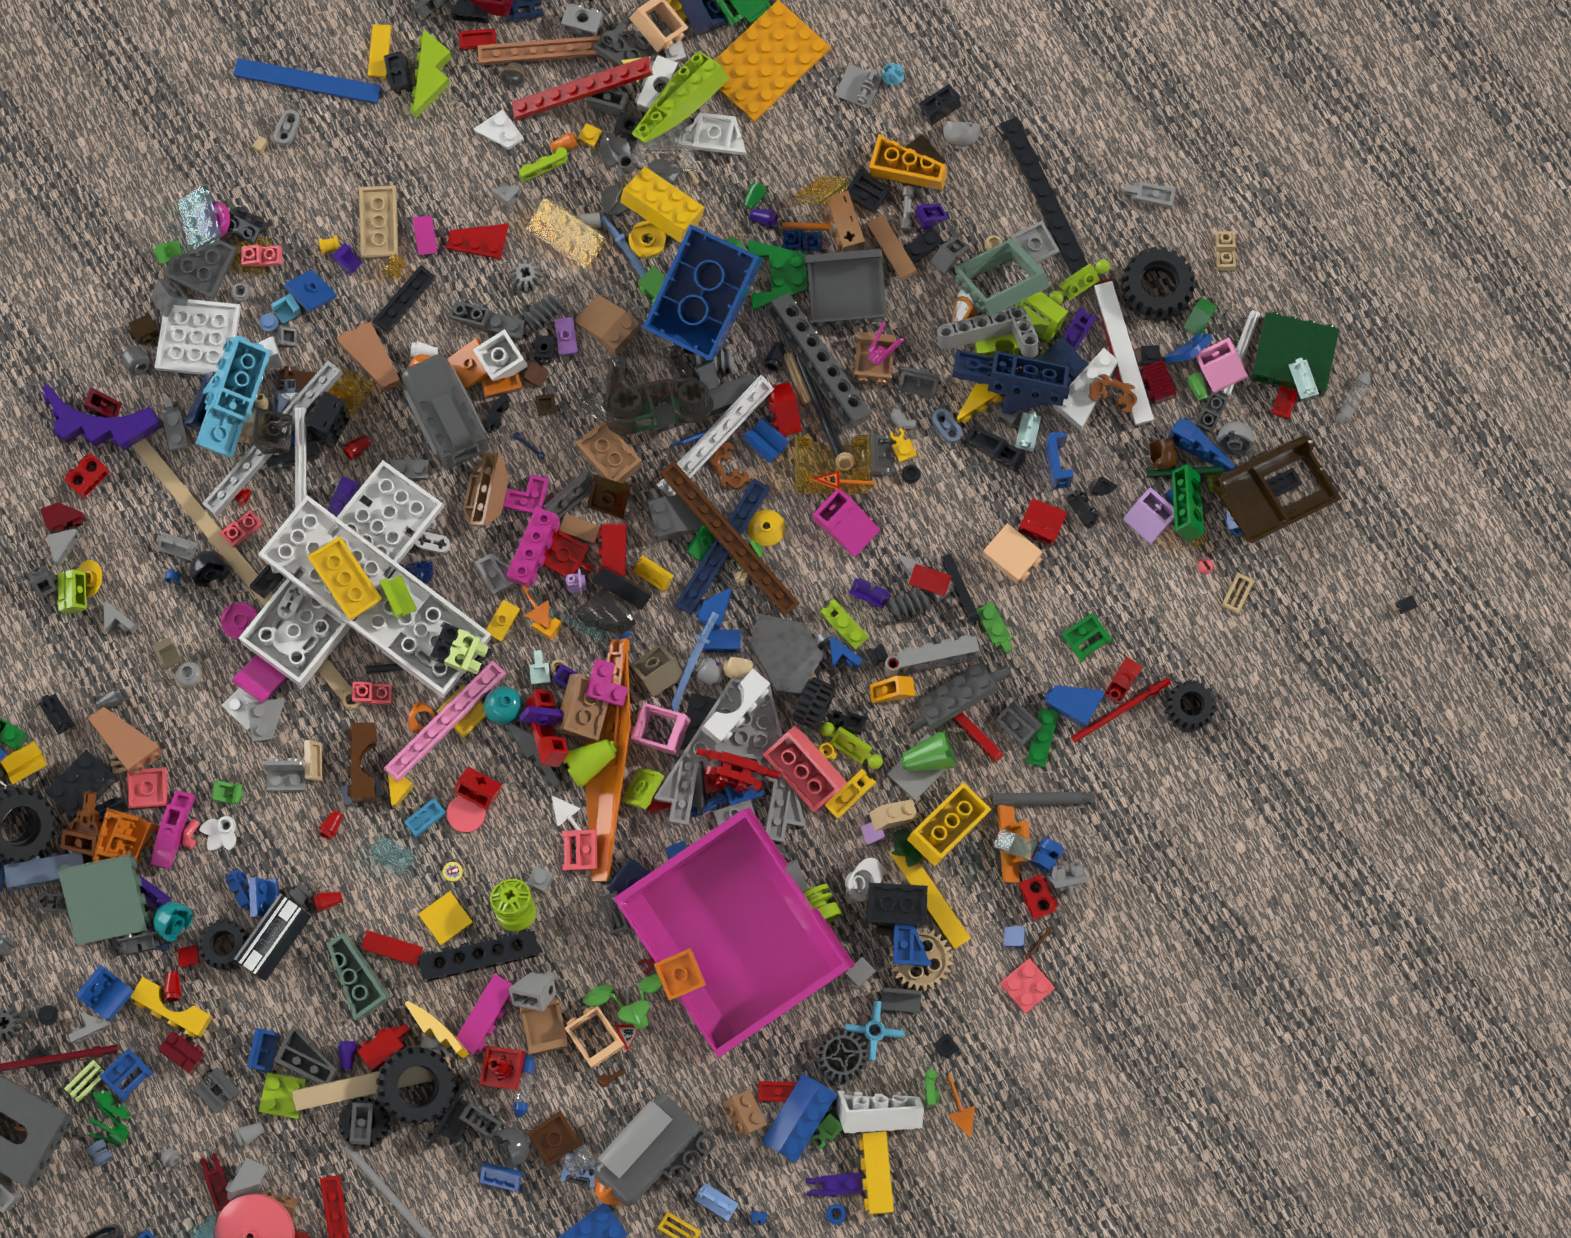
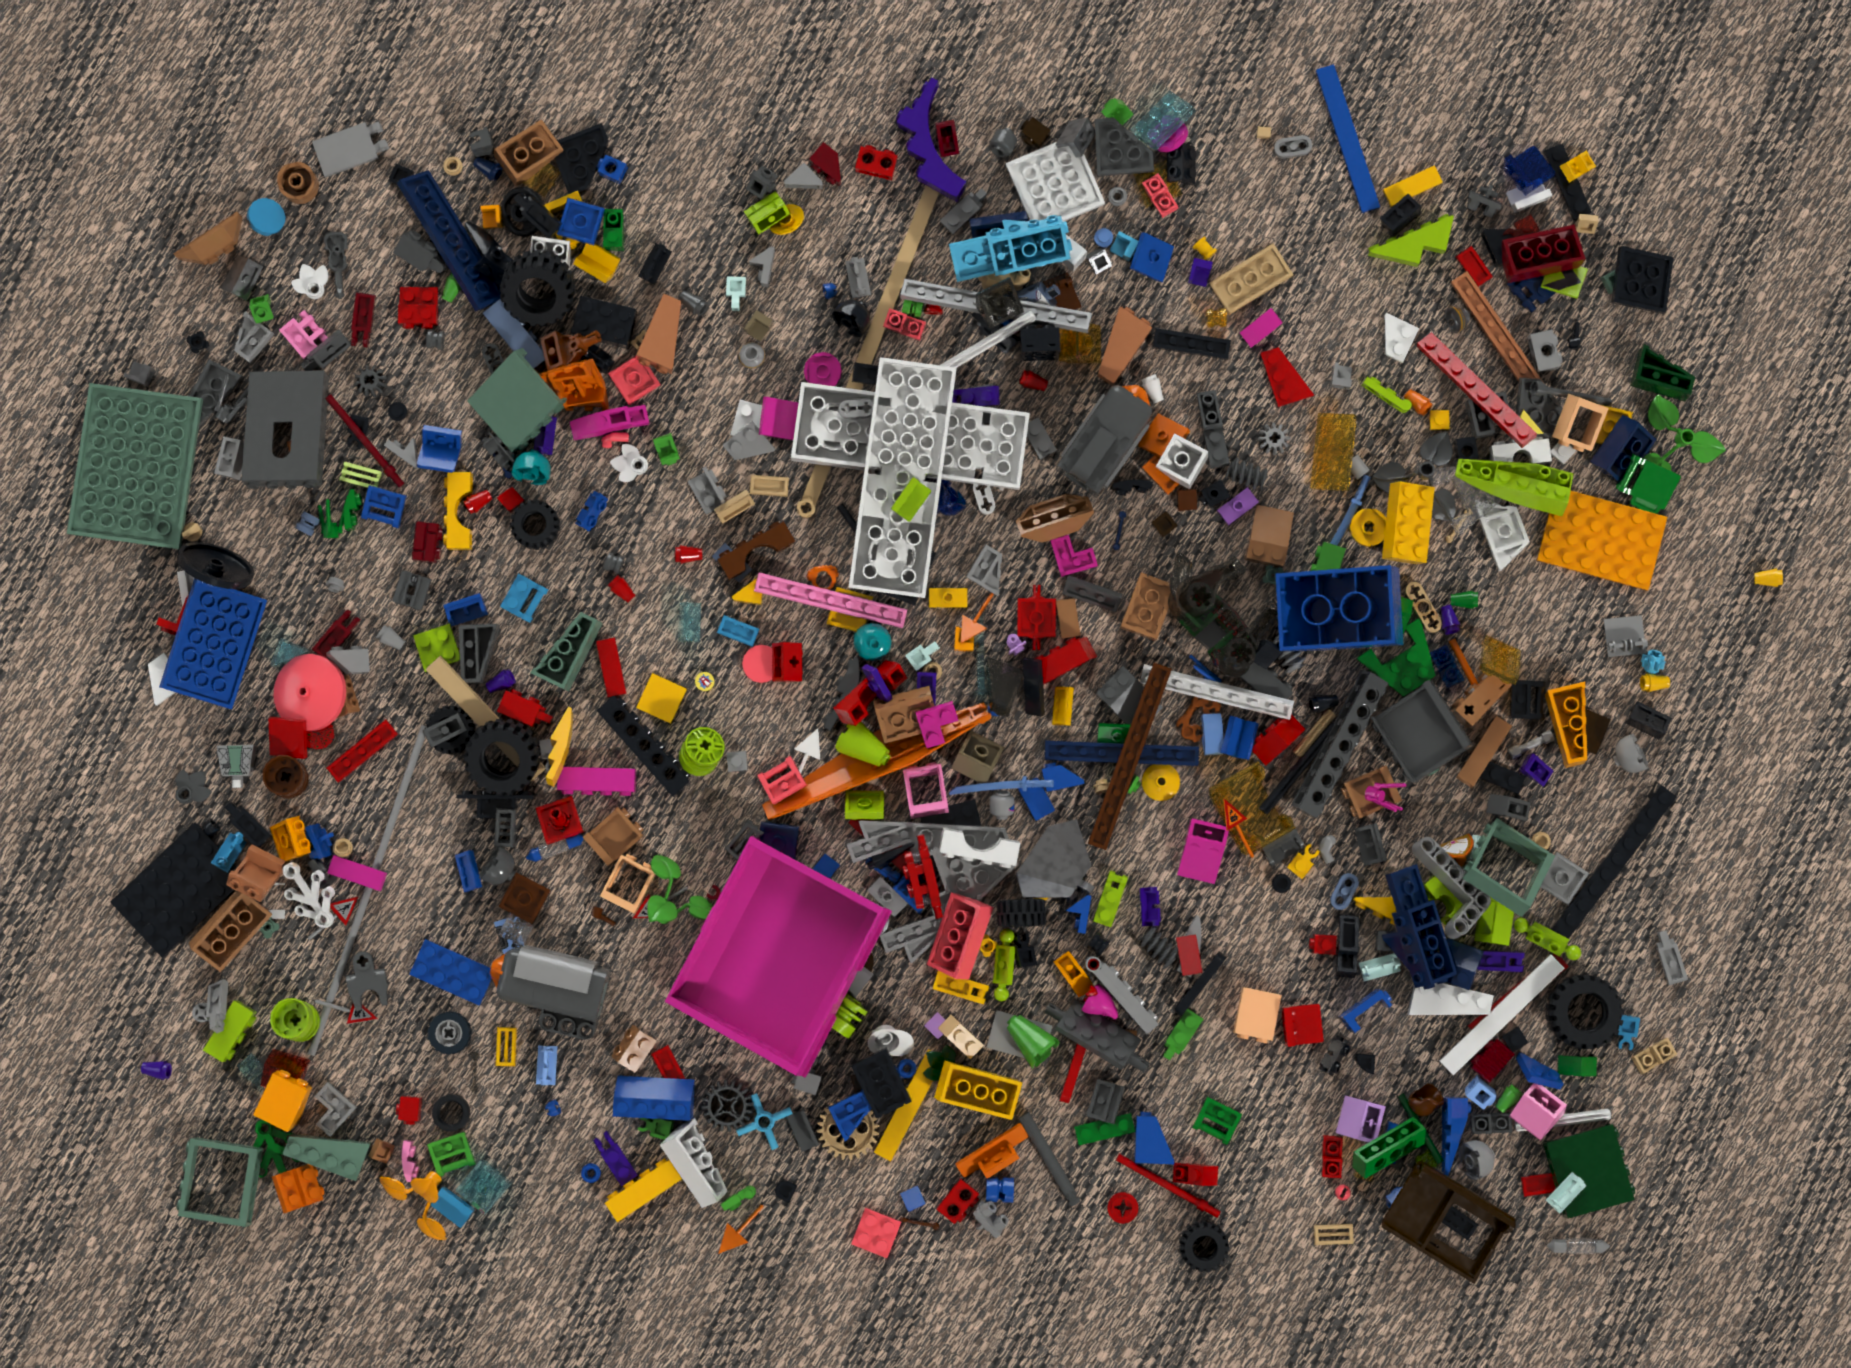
camera: 65 degrees right, 10 degrees up
(122, 656) = (736, 288): none -> light aqua plate
(231, 508) = (916, 310): none -> bright green wheel
(262, 895) = (593, 534): blue bracket -> none
(272, 937) = (562, 562): black slope -> none
(279, 997) = (518, 595): none -> dark azure plate
(312, 721) = (769, 485): none -> tan tile
(344, 578) = (900, 444): yellow plate -> none
(371, 693) = (821, 522): coral slope -> none
(457, 649) = (895, 584): yellowish green hips -> none
(533, 547) = (1025, 588): dark pink brick -> none
(533, 991) = (638, 811): light grey torso -> none
(608, 496) = (1109, 628): dark brown tile -> none
(642, 333) = (1269, 571): none -> sand green plate
(680, 974) = (715, 930): orange plate -> none
(737, 667) = (1016, 828): tan hair -> none
(746, 227) = (1430, 607): none -> tan beam
(749, 460) = (1212, 734): none -> medium blue slope
(844, 461) = (1259, 818): tan plate -> none
(896, 873) = (911, 1073): none -> blue plate
(910, 83) = (1653, 682): none -> yellow cone
(929, 678) = (1099, 1002): none -> dark pink hat
(982, 467) = (1323, 944): none -> red bracket
(1015, 844) = (991, 1158): clear light blue slope -> none
(1098, 388) = (1452, 1010): dark orange helmet -> none
(1110, 760) = (1115, 1213): none -> red gear
(1170, 559) = (1332, 1156): none -> red slope
(1174, 409) = (1482, 1100): none -> light blue brick
(1193, 257) = (1628, 1030): none -> dark azure plate

